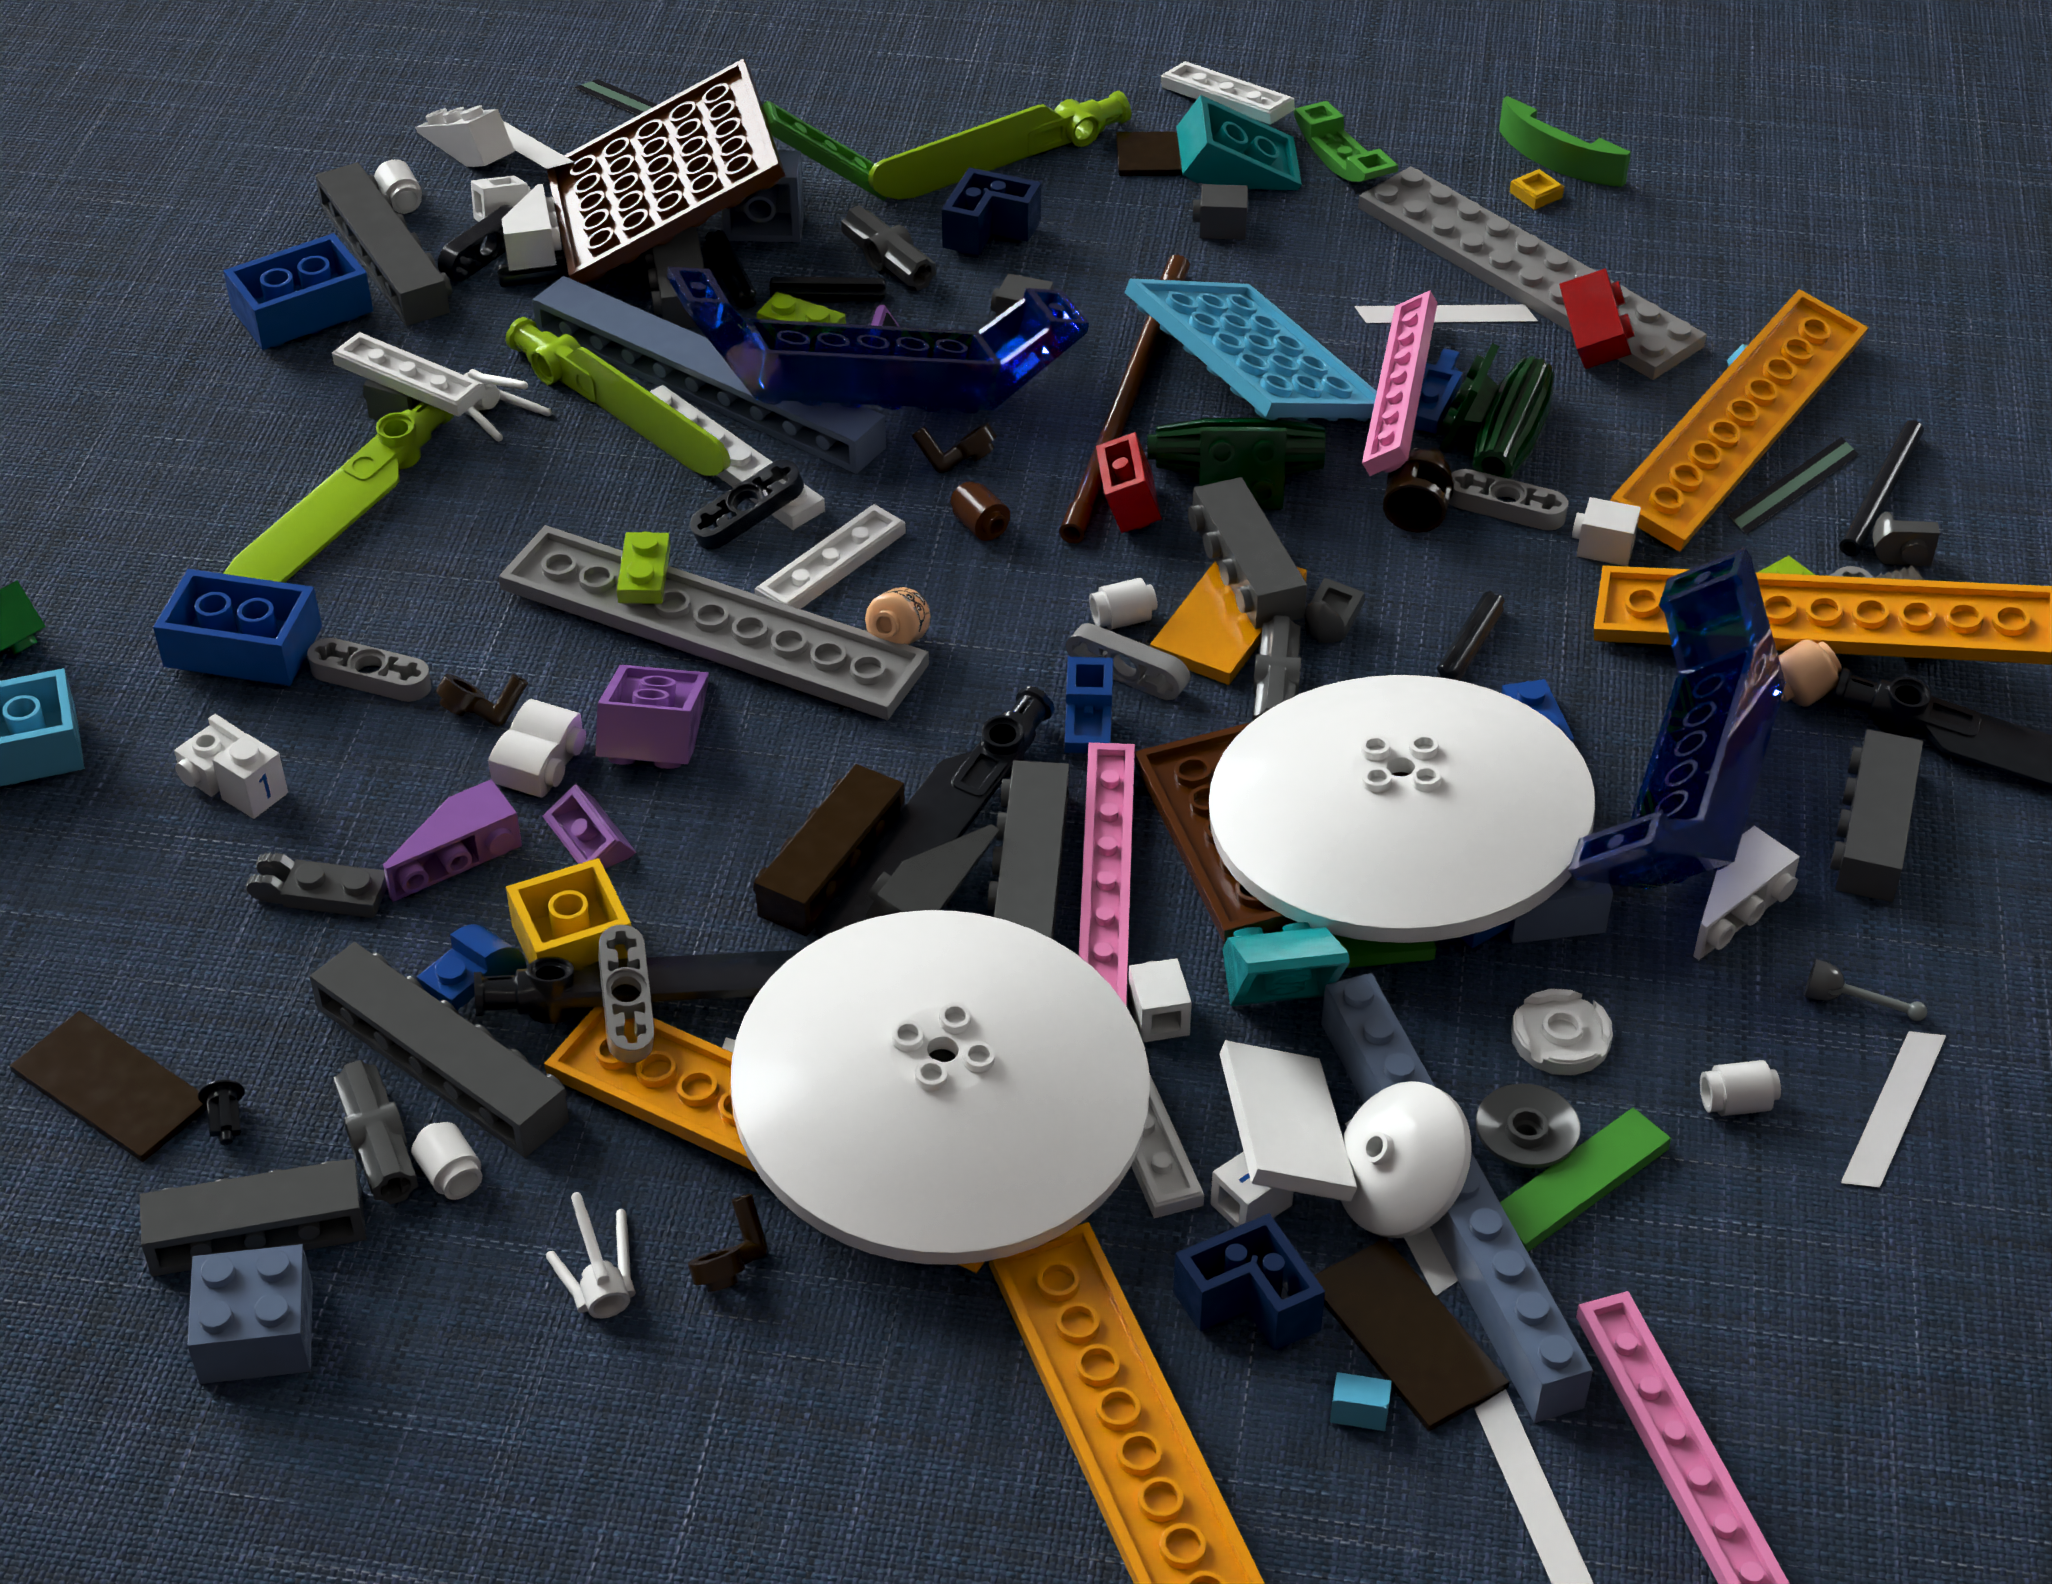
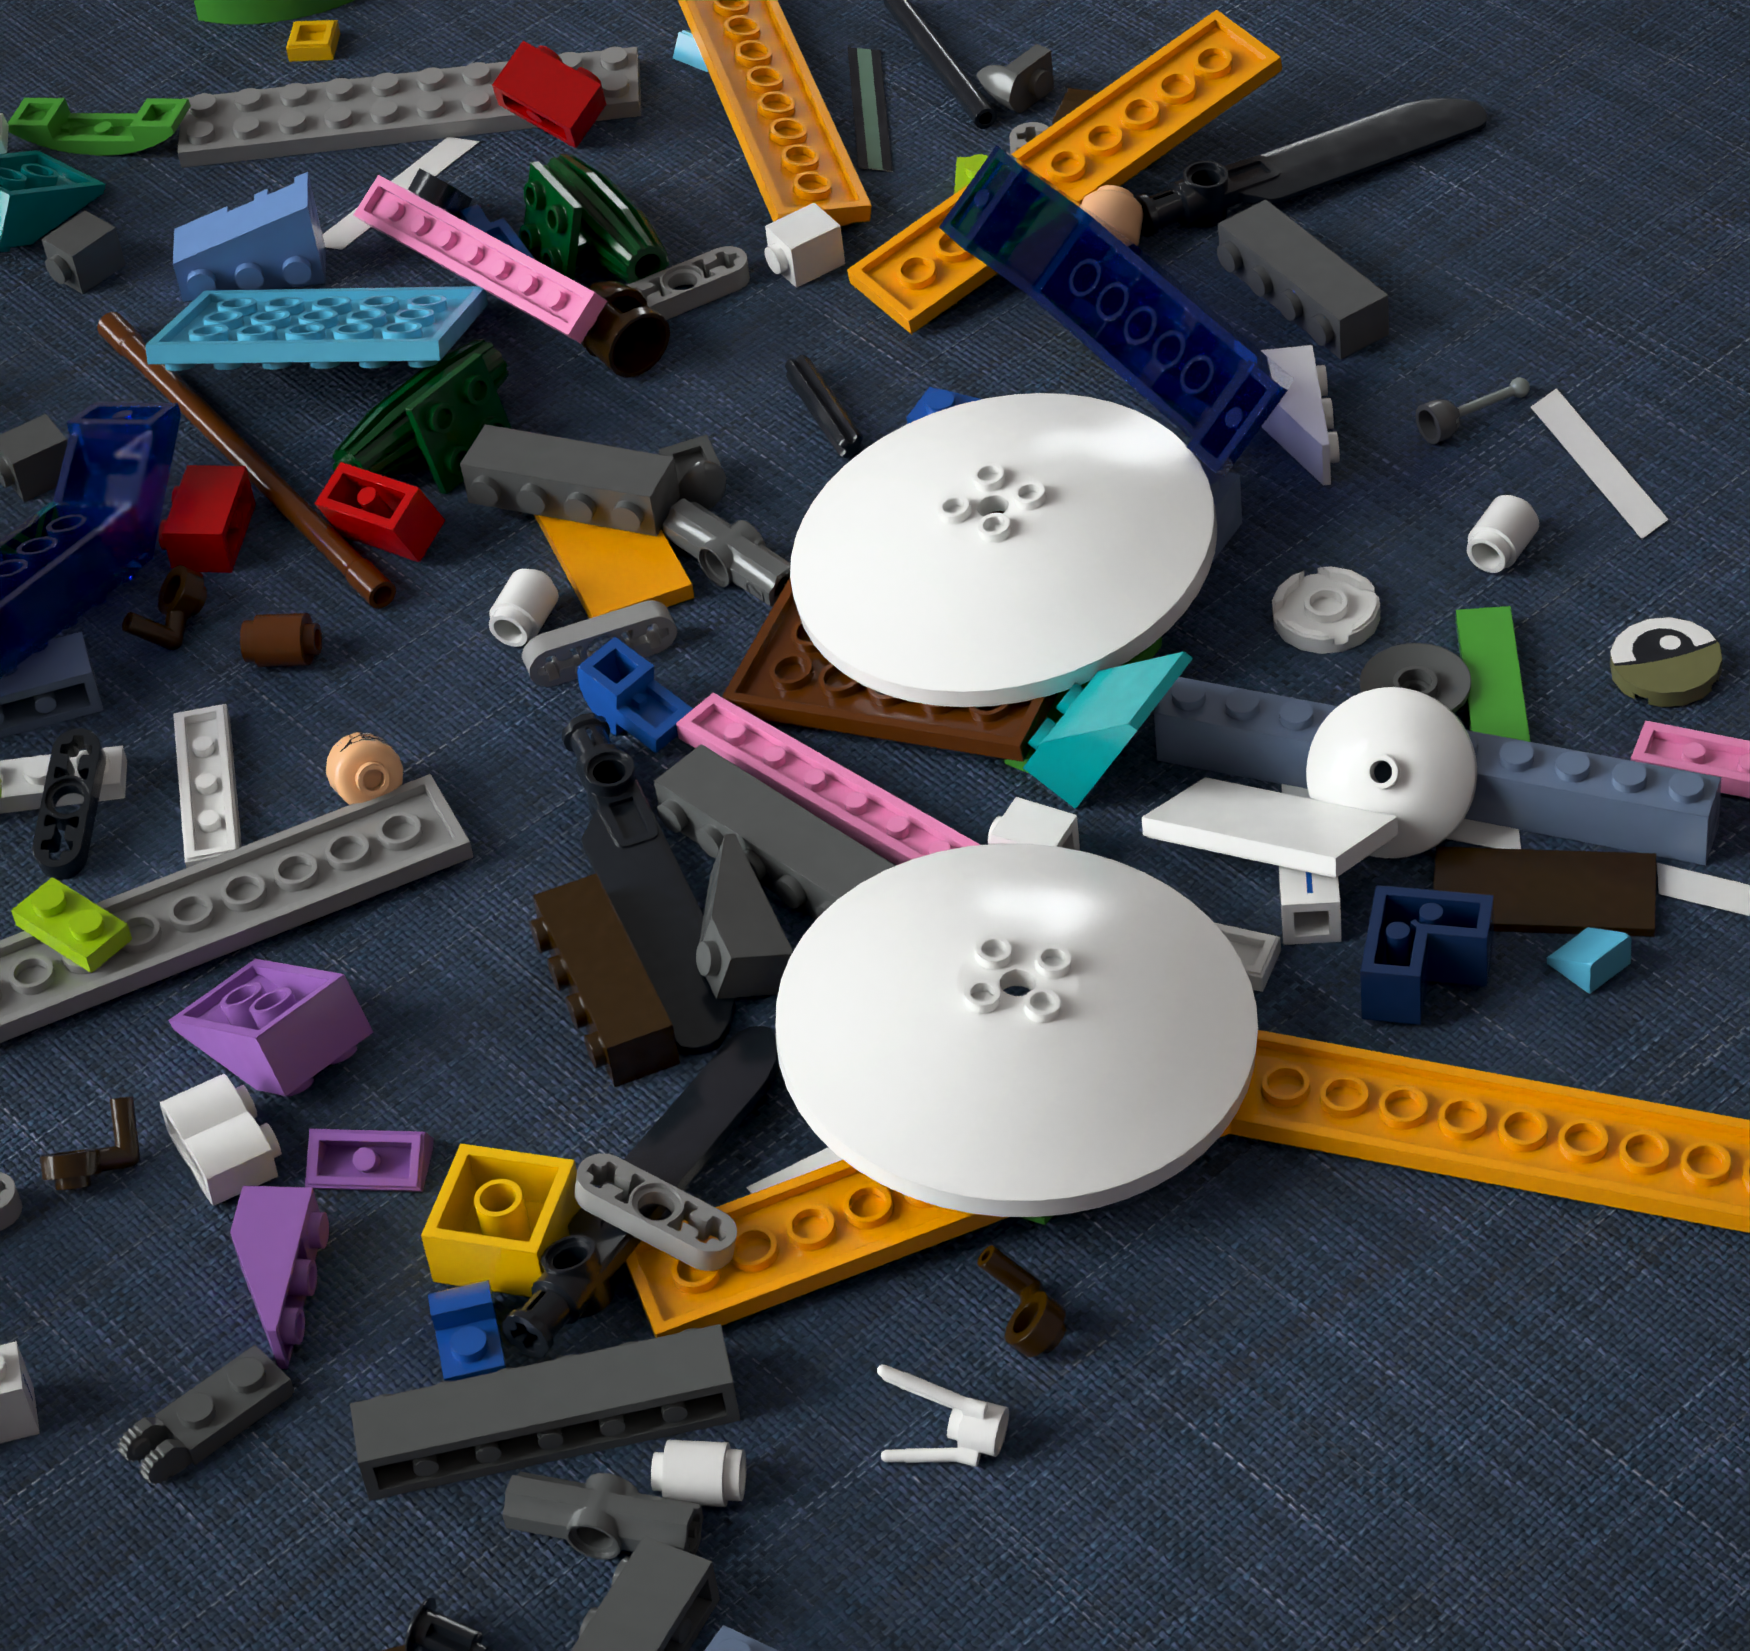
camera: 45 degrees left, 0 degrees up
(1051, 412) = (208, 518): none -> red brick
(1307, 279) = (254, 246): none -> medium blue wedge
(1436, 325) = (439, 193): none -> black beam
(1717, 1272) = (1666, 661): none -> tile

